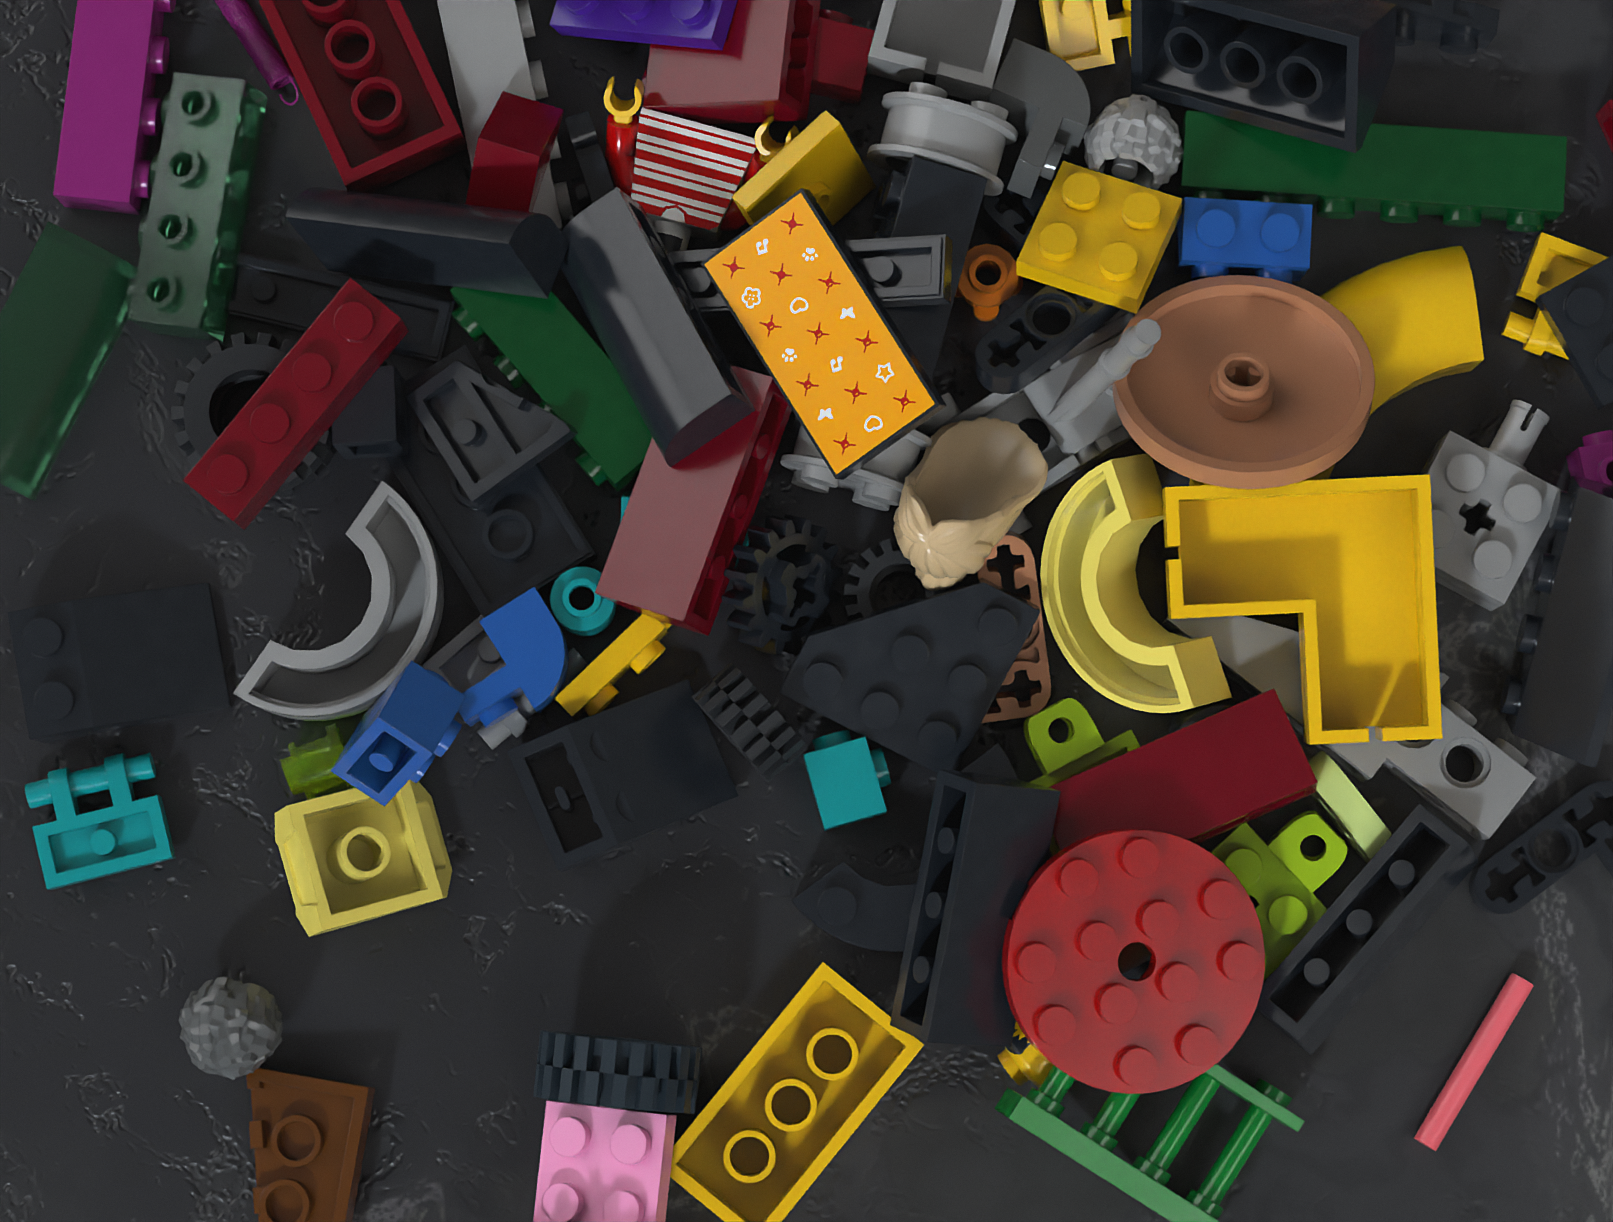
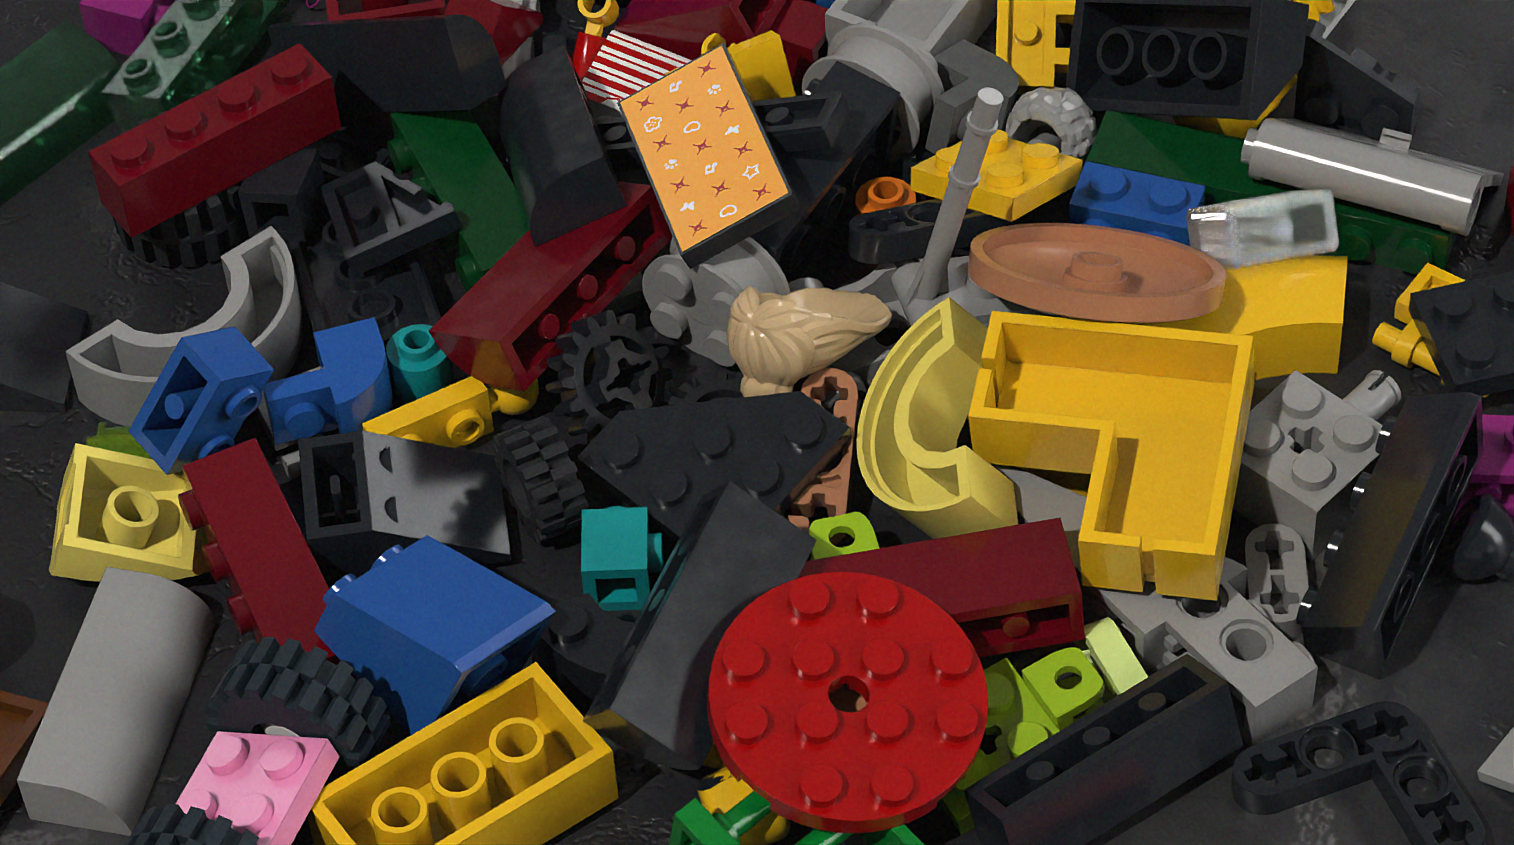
camera: 20 degrees right, 35 degrees down
(425, 1058) = (116, 703): none -> light grey brick
(523, 891) = (255, 546): none -> dark red brick
(713, 947) = (430, 629): none -> blue slope
(1387, 263) = (1265, 228): none -> clear brick
(1481, 649) = (1289, 580): none -> light grey beam
(1482, 133) = (1368, 171): none -> light grey door

